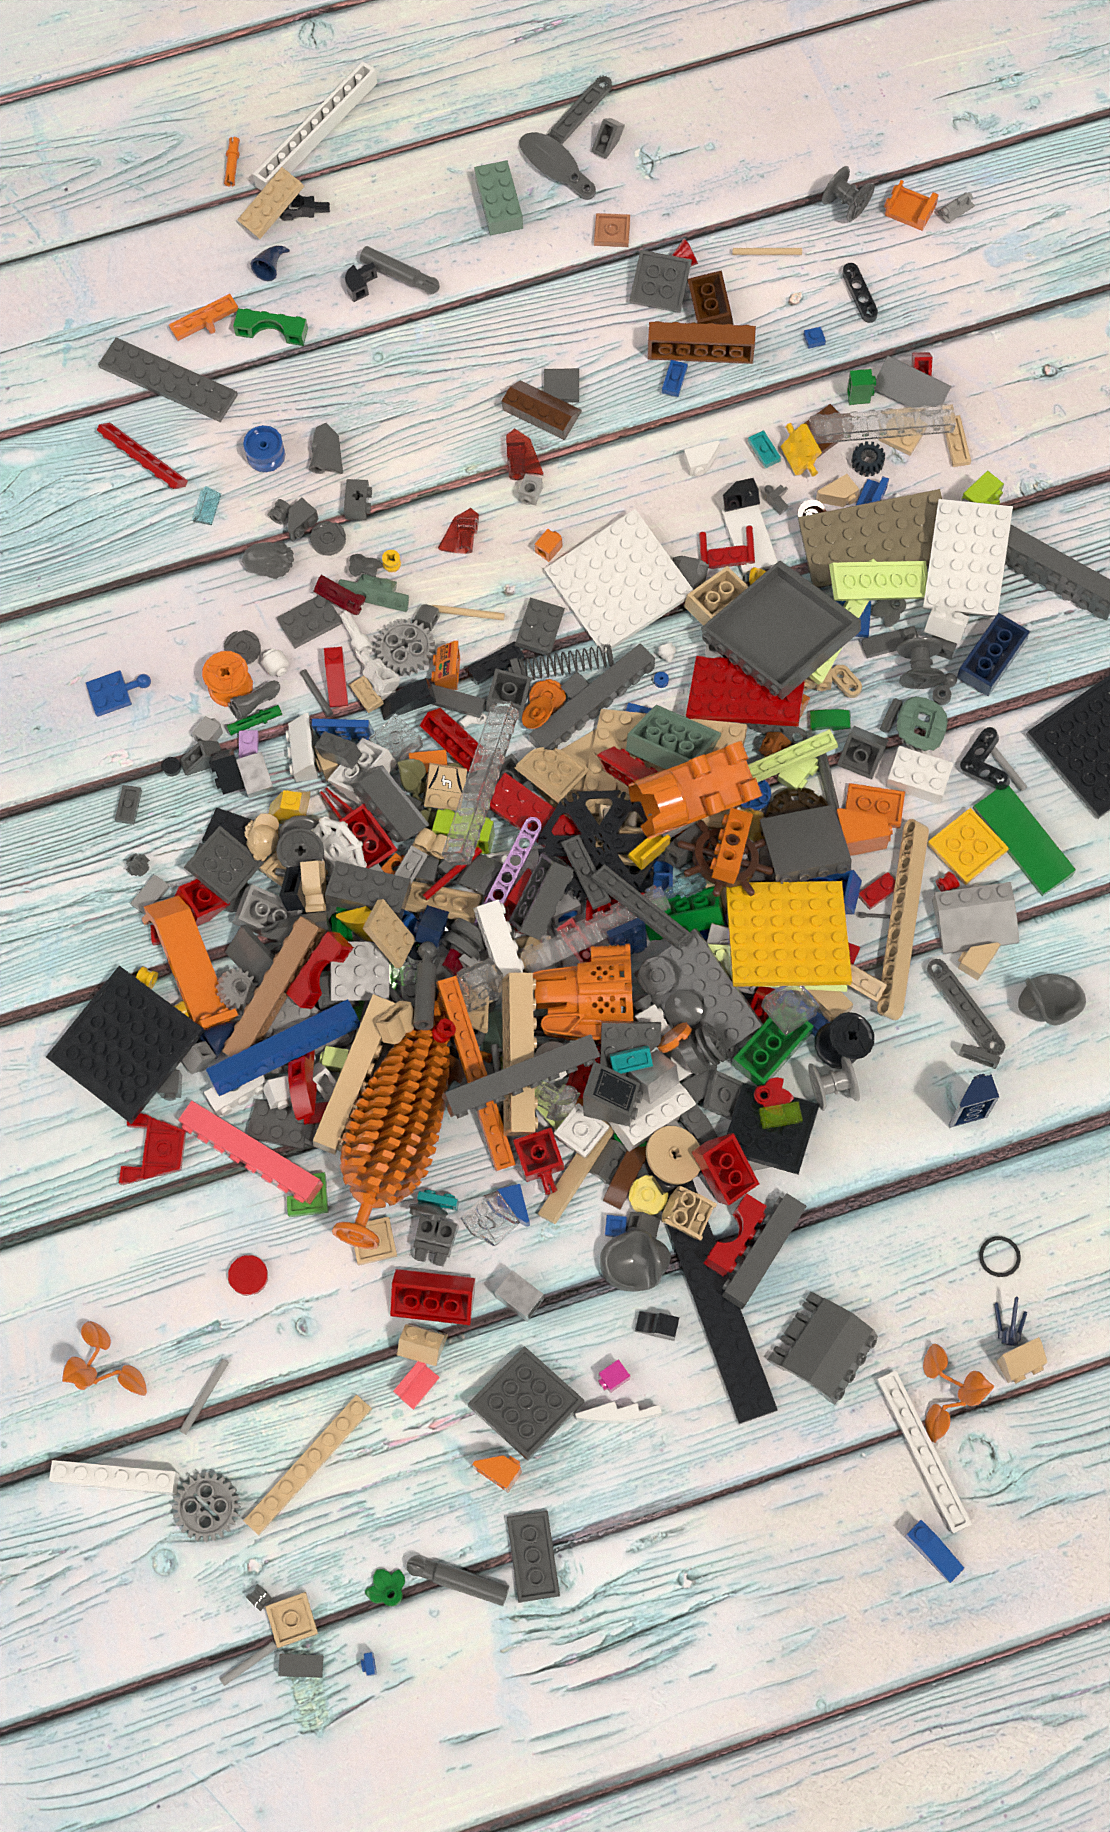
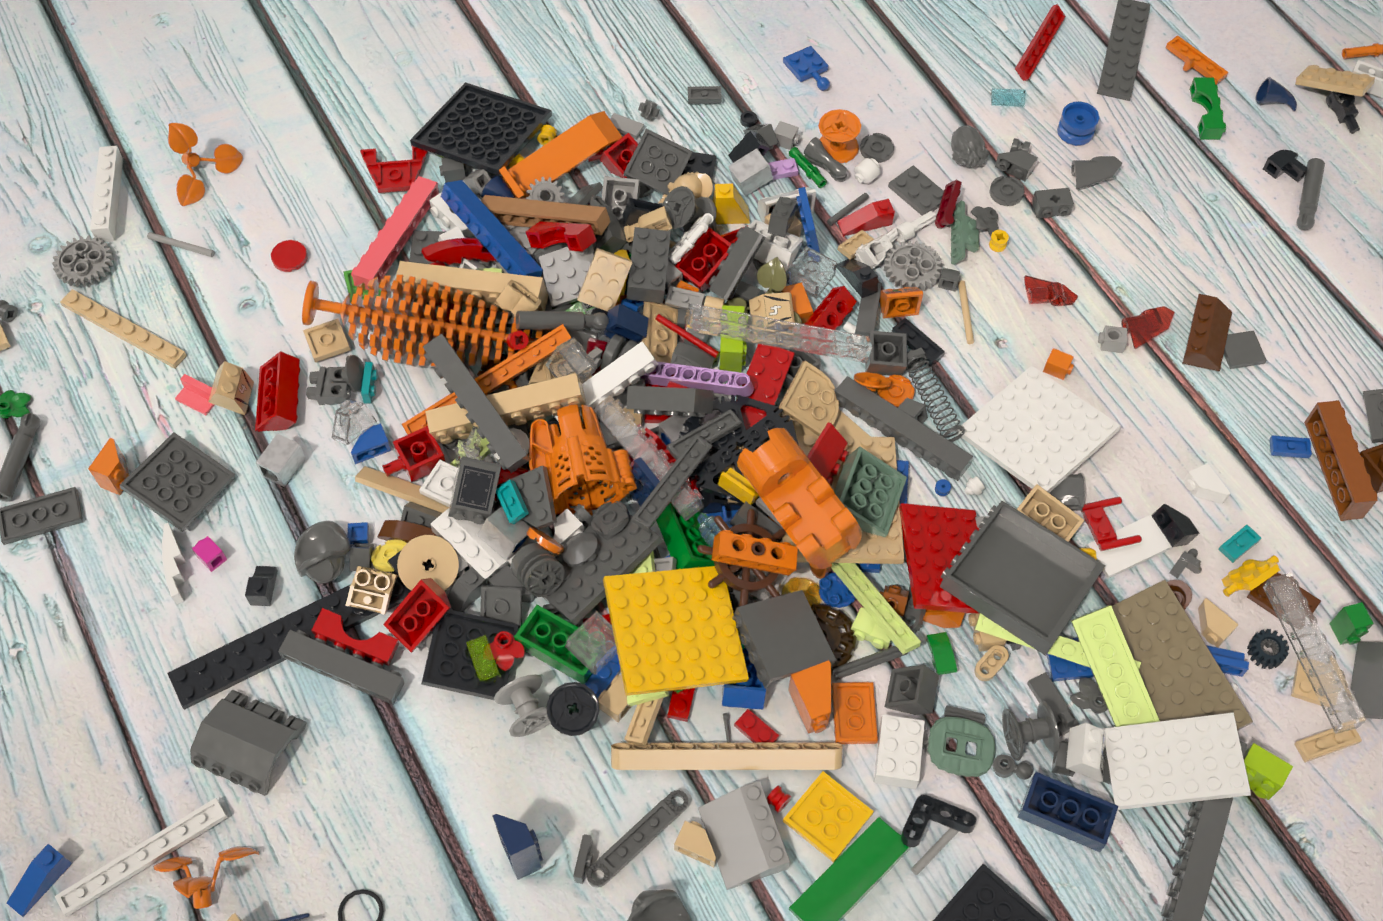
camera: 75 degrees right, 10 degrees down
(539, 626) = (967, 370): dark grey plate -> none

